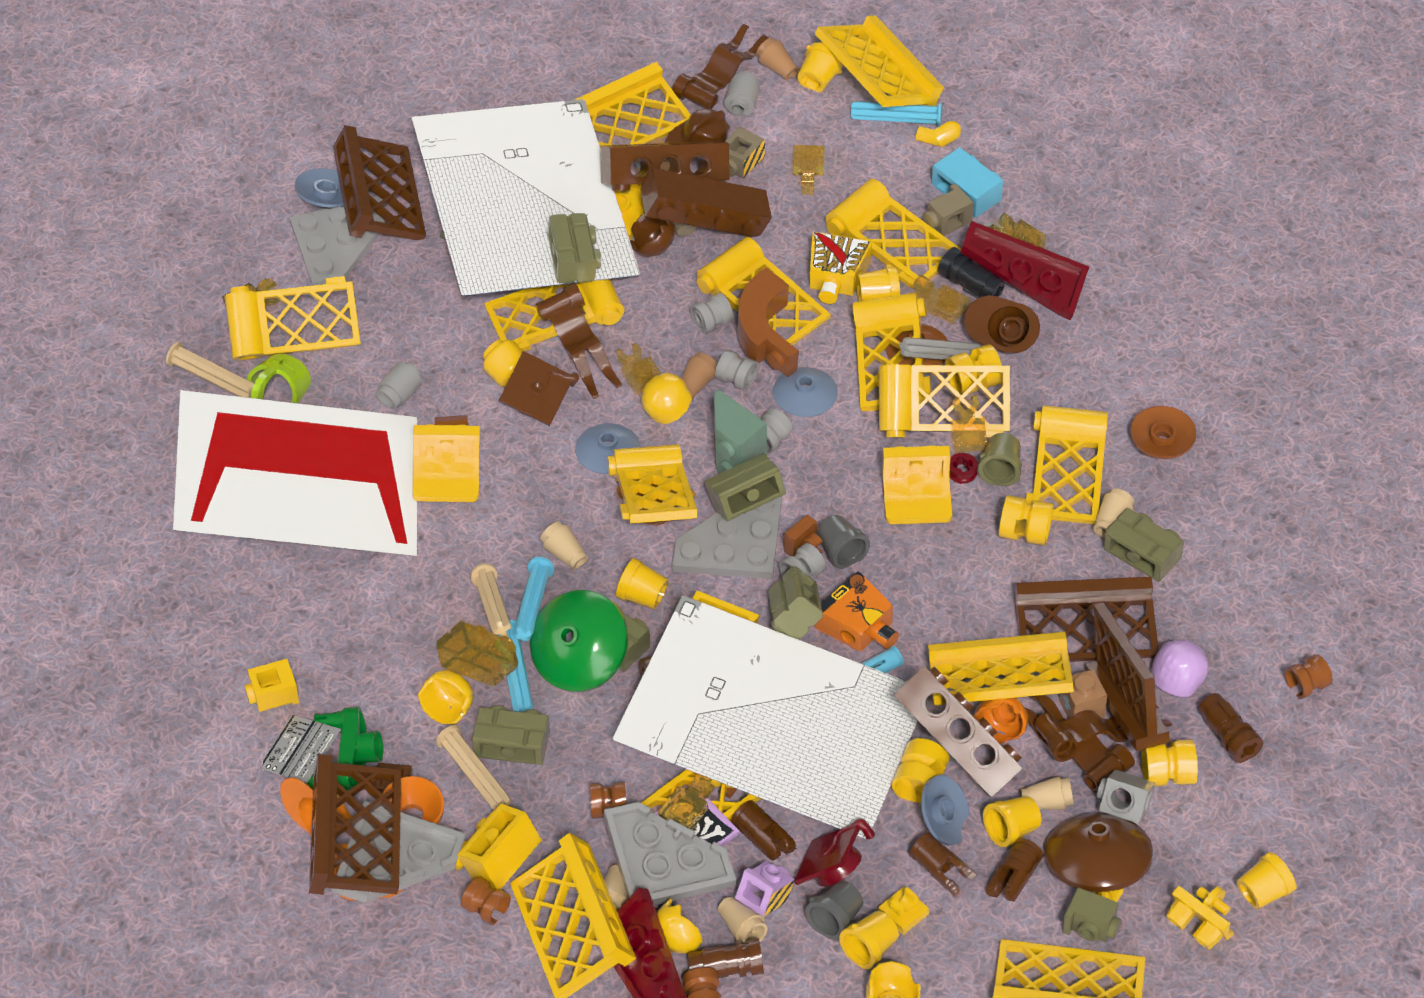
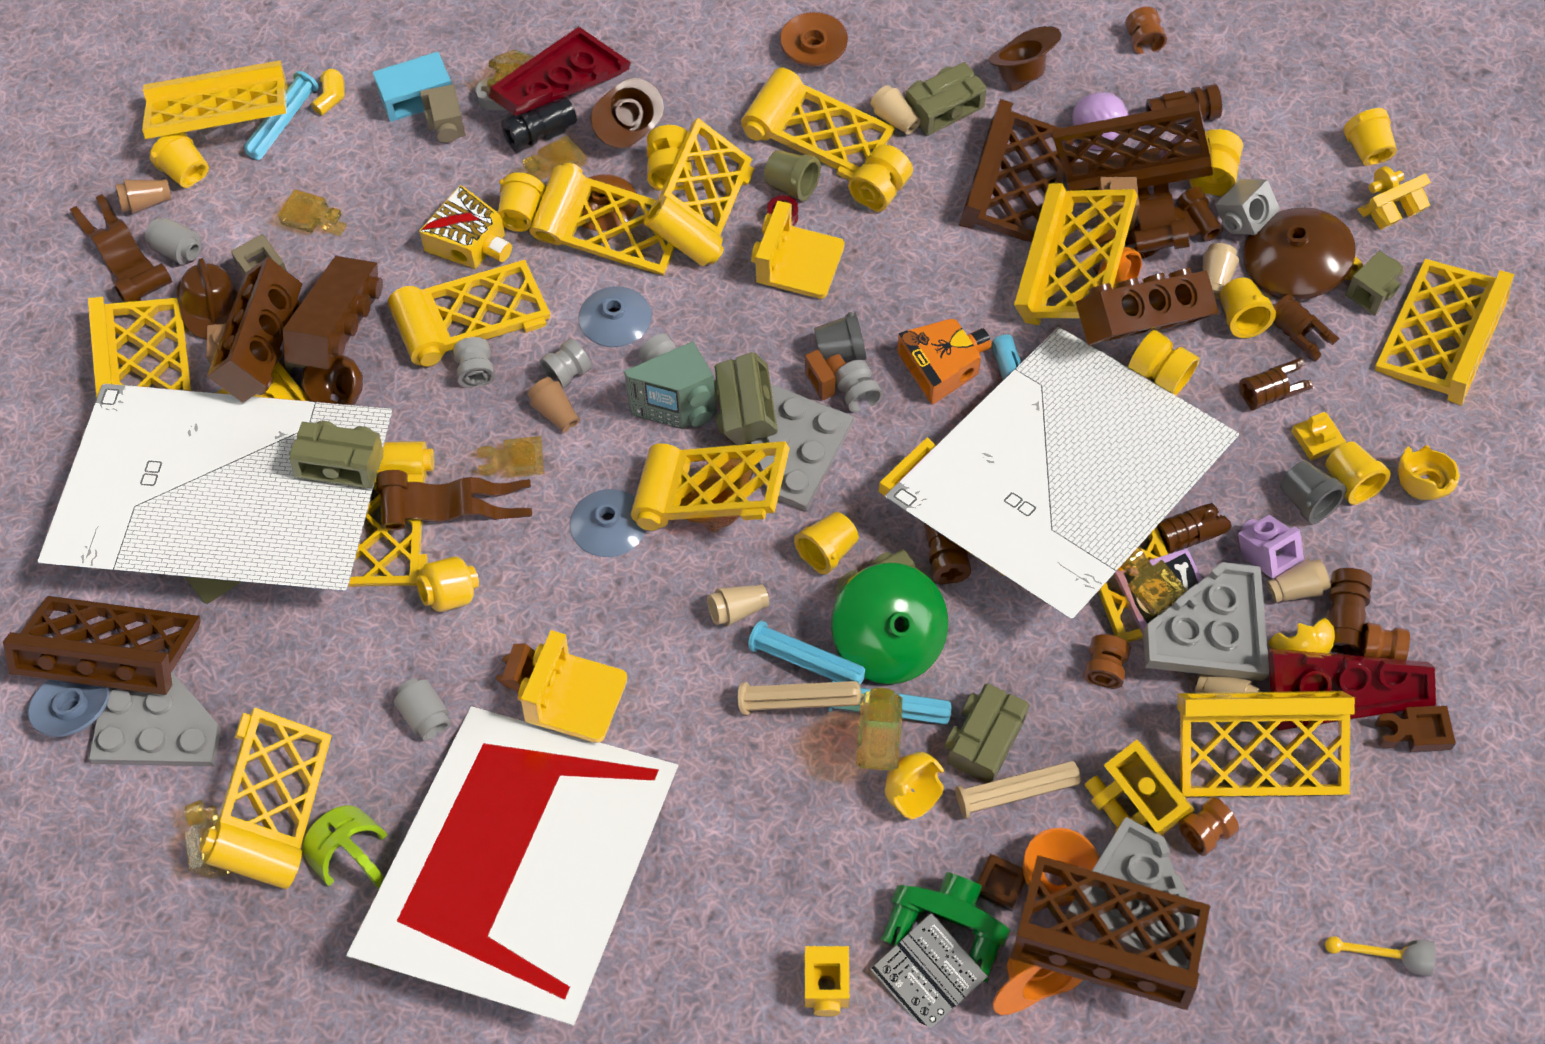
camera: 70 degrees left, 10 degrees up
(208, 371) = (293, 921): tan axle -> none
(537, 388) = (506, 561): reddish brown hat -> none
(665, 398) = (574, 440): yellow hair -> none
(758, 303) = (522, 324): dark orange arch -> none
(795, 603) = (922, 401): olive brick -> none
(833, 855) = (1251, 471): dark red hat -> none
(869, 205) = (402, 184): yellow piece -> none
(934, 348) = (635, 174): light grey axle -> none
(944, 809) = (1218, 363): sand blue dish -> none
(968, 432) = (742, 186): clear yellow plate -> none
(1219, 589) = (1025, 56): none -> reddish brown piece

